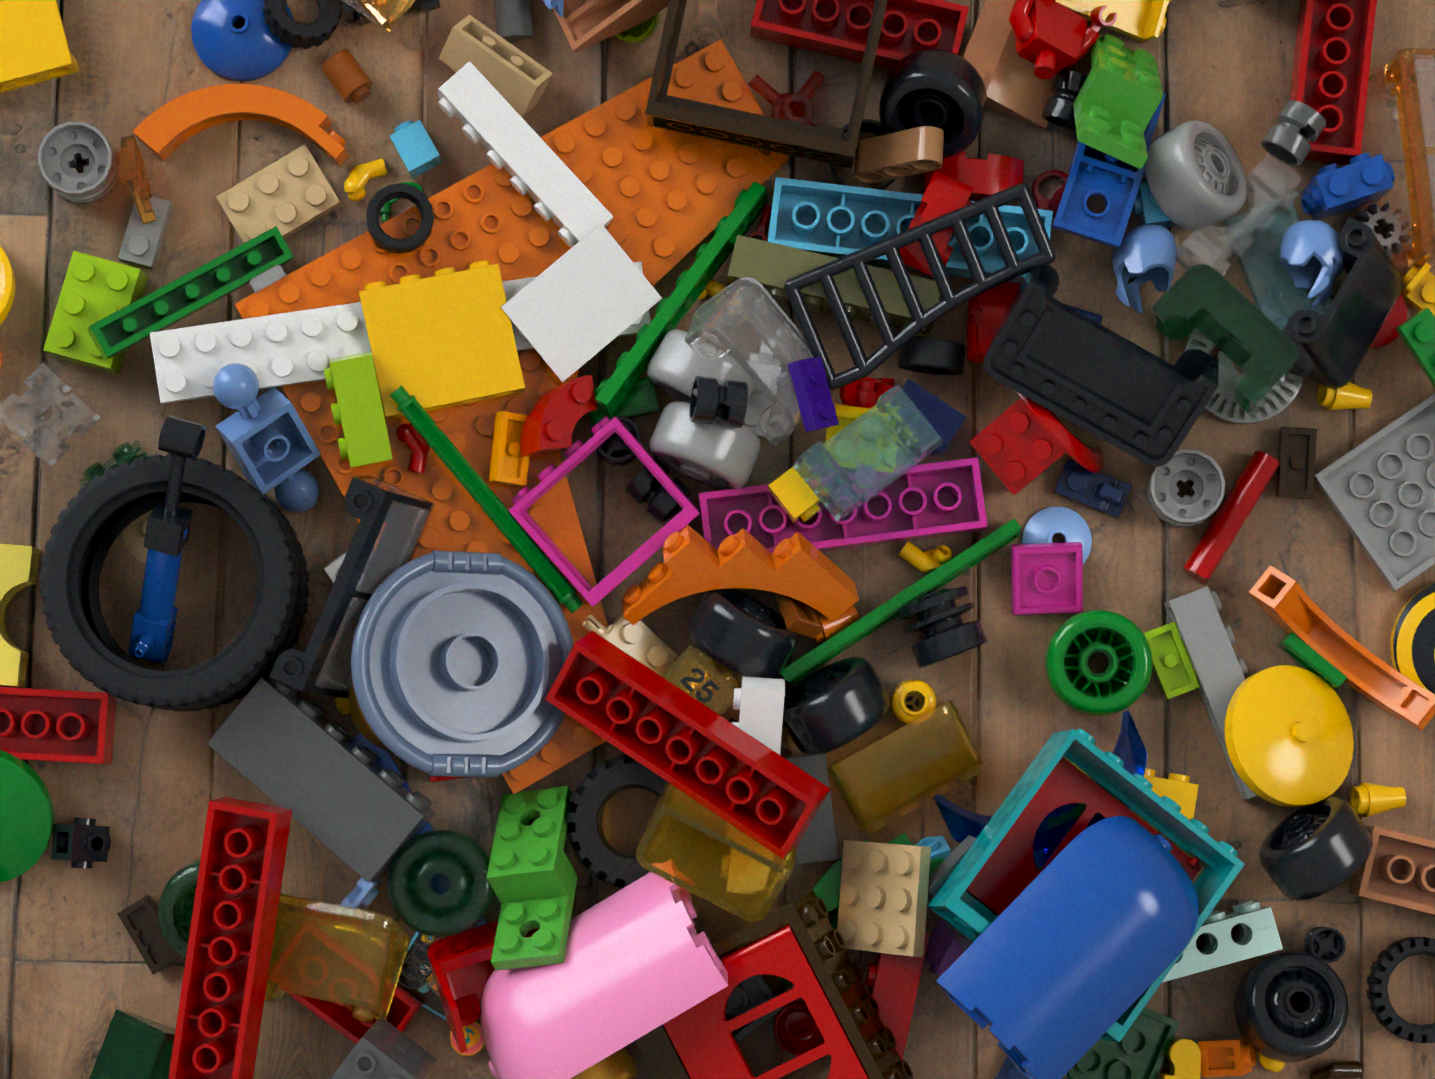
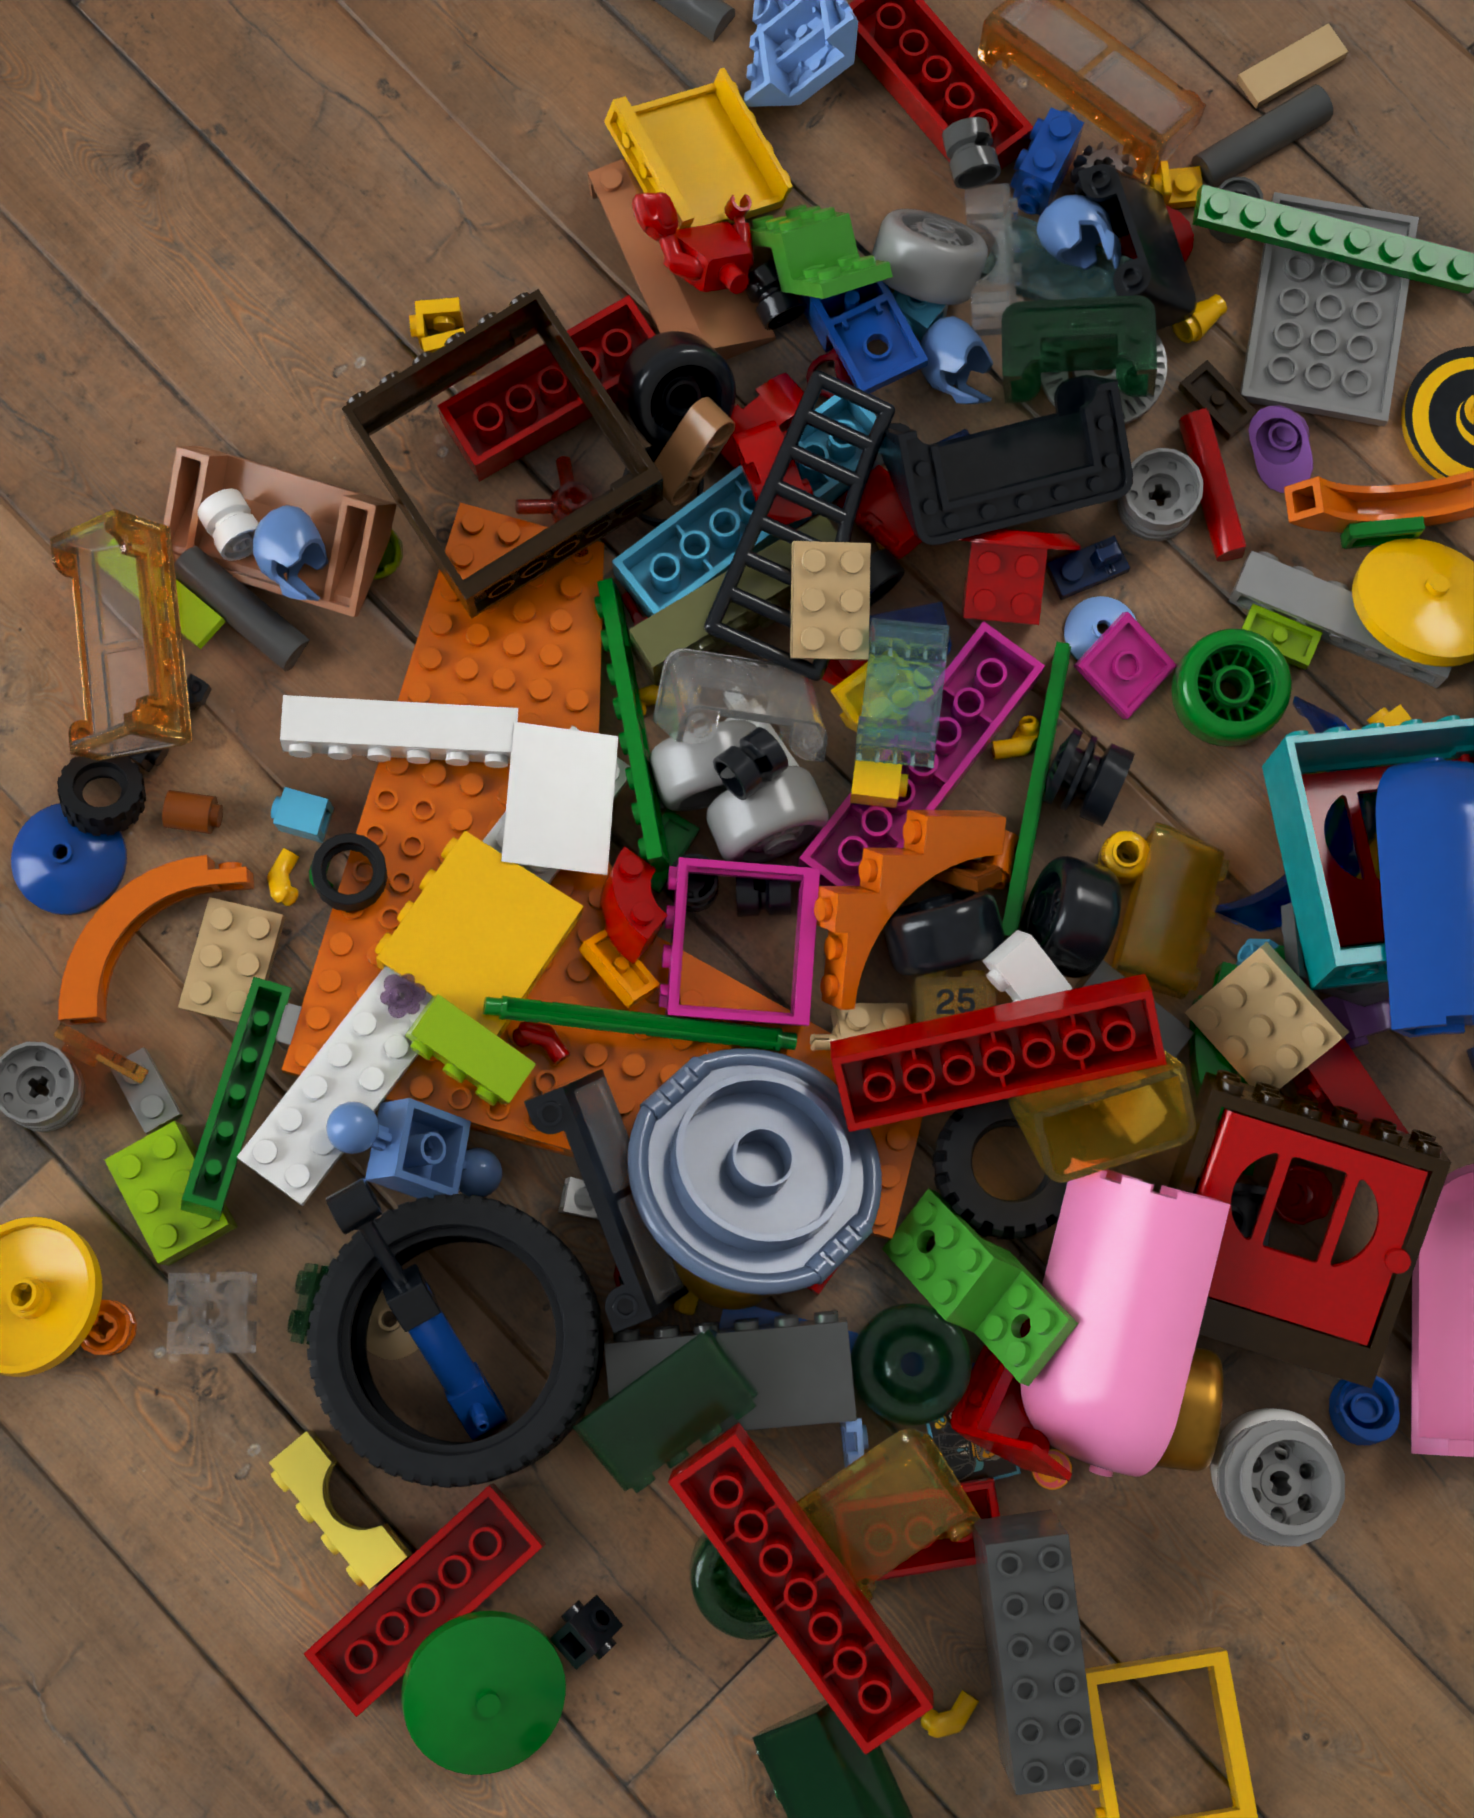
camera: 45 degrees left, 5 degrees down
(144, 929) = (710, 1648): dark brown plate -> none
(256, 758) = (668, 1411): none -> clear green windscreen
(359, 336) = (412, 992): none -> clear purple plant
(502, 64) = (317, 677): tan brick -> none
(813, 394) = (812, 691): dark purple plate -> none
(884, 345) = (830, 600): none -> tan plate
(1304, 537) = (1281, 447): none -> medium lavender piece

